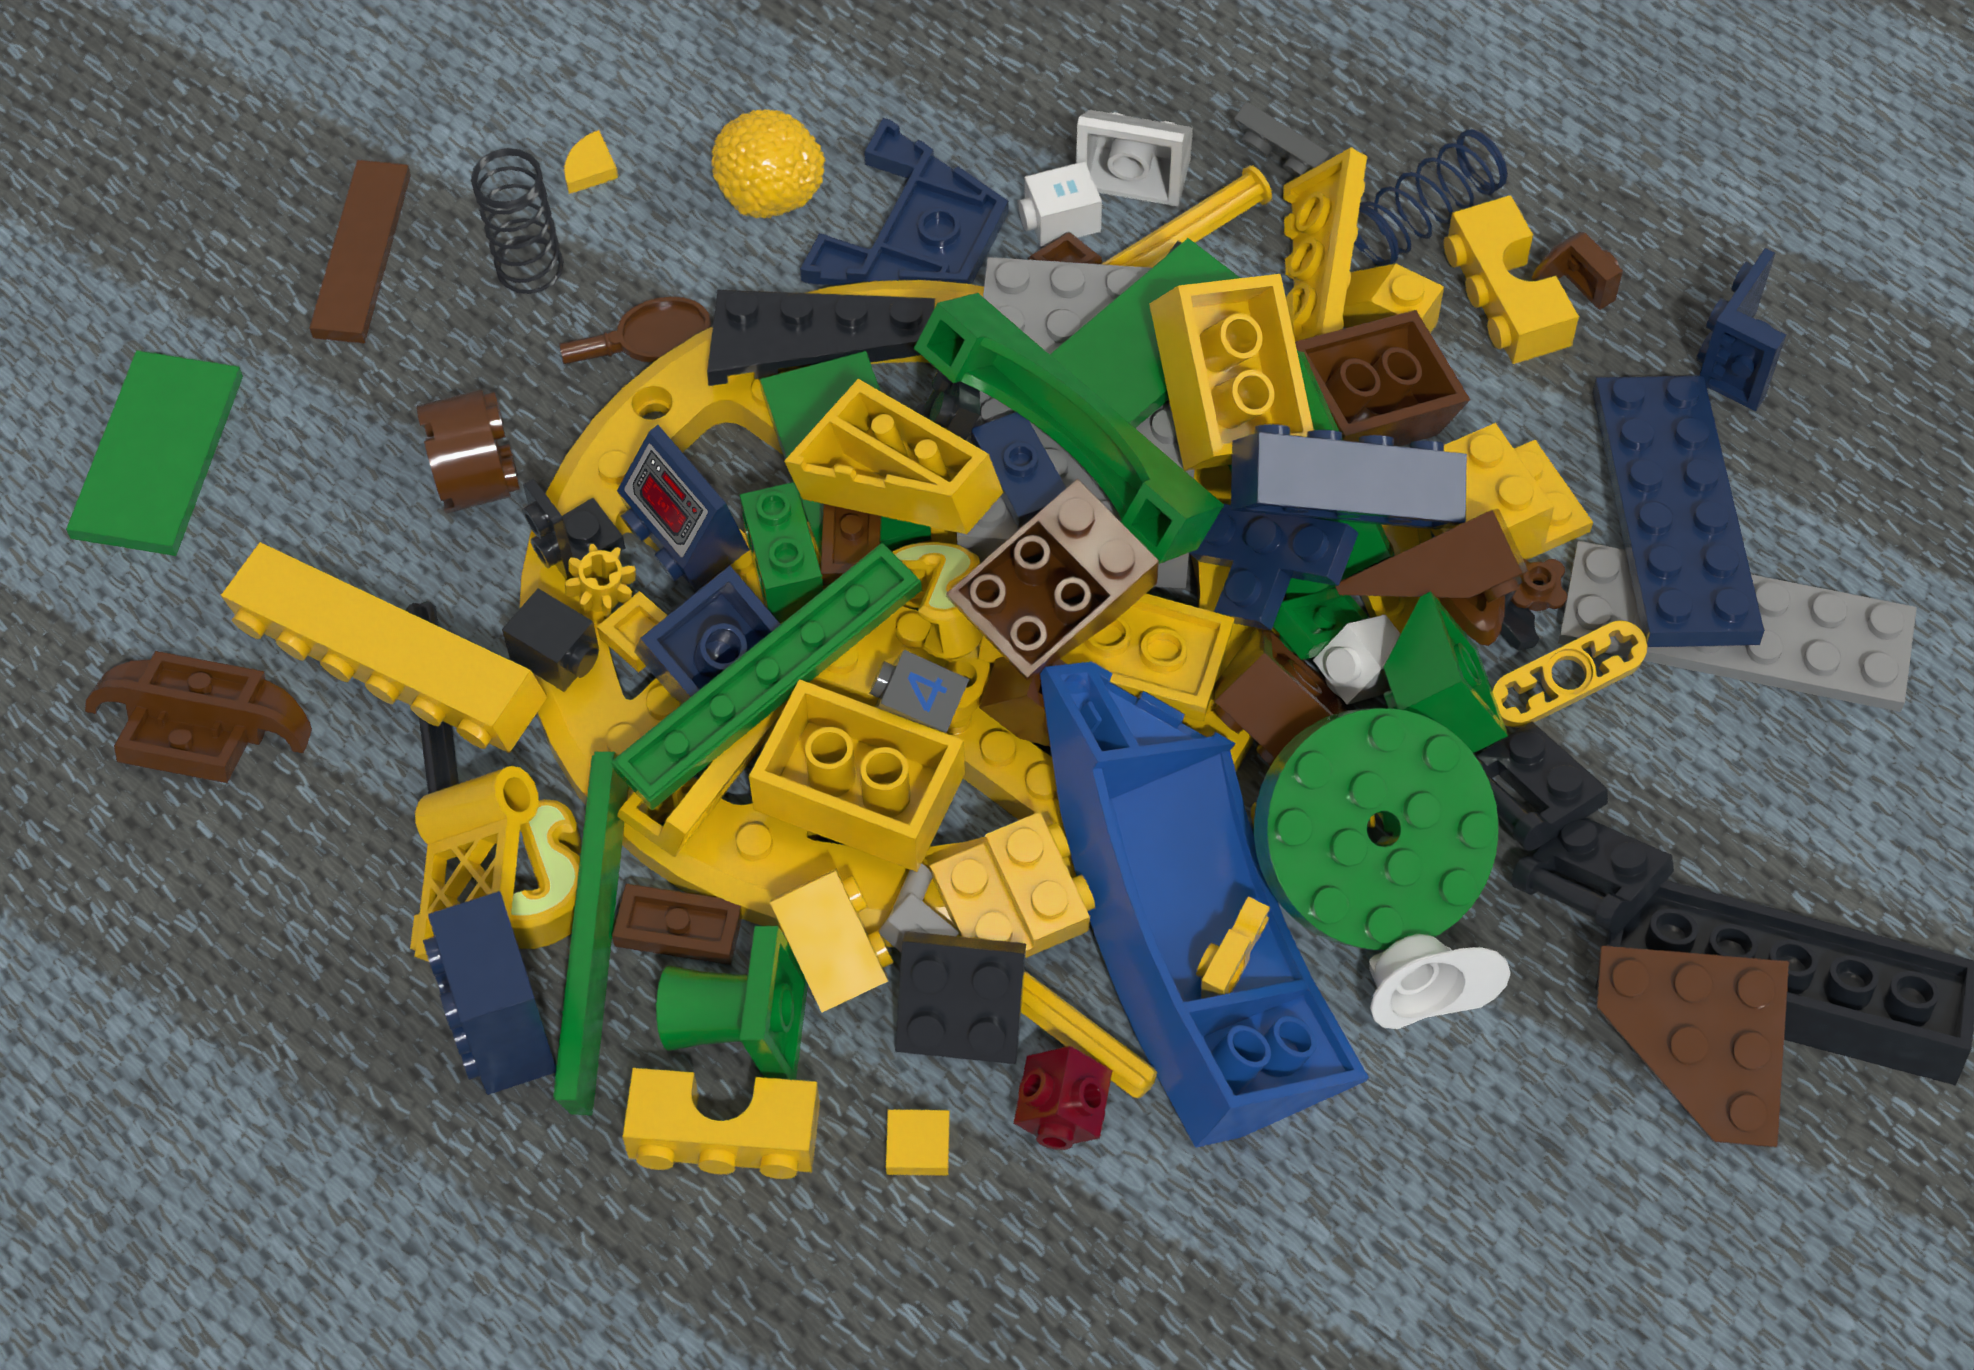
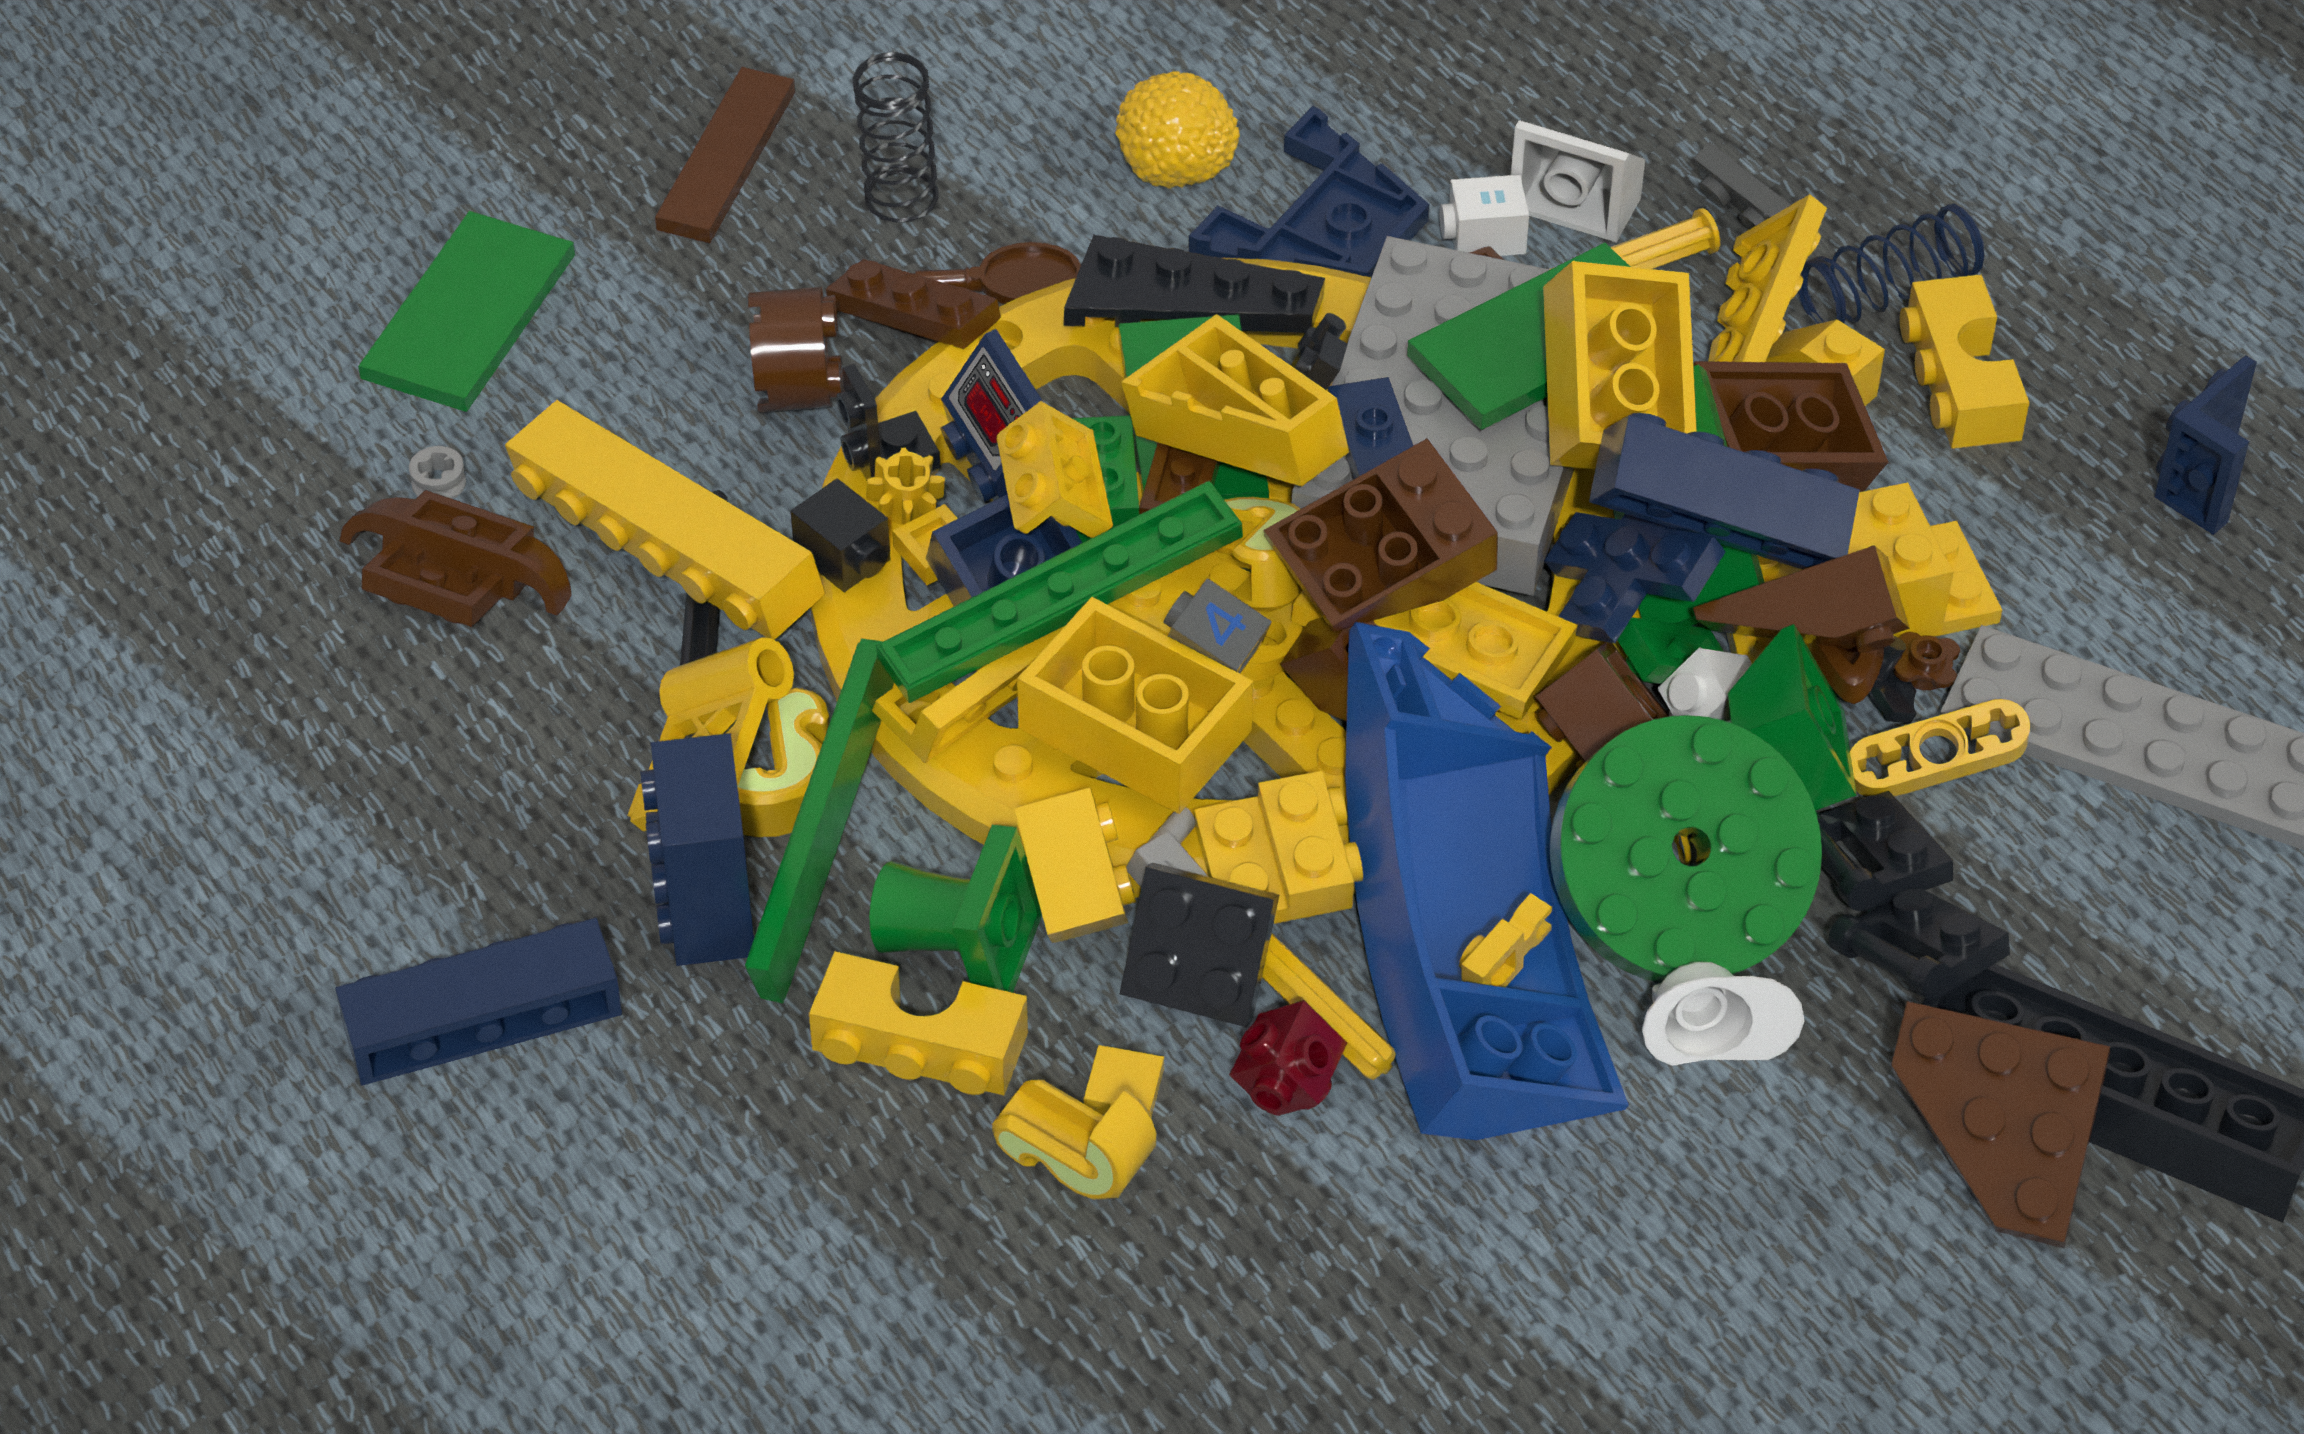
camera: 10 degrees right, 10 degrees down
(147, 623) = (437, 458): none -> light grey bush
(312, 1172) = (478, 1001): none -> dark blue brick
(565, 380) = (914, 303): none -> reddish brown plate
(589, 163) = (986, 107): yellow tile -> none
(677, 924) = (914, 833): reddish brown plate -> none
(740, 562) = (1053, 472): none -> yellow bracket
(887, 1214) = (1074, 1142): none -> yellow animal
(1150, 492) = (1500, 462): green arch -> none
(1586, 266) = (2052, 361): reddish brown plate -> none
(1676, 512) = (2096, 611): dark blue plate -> none

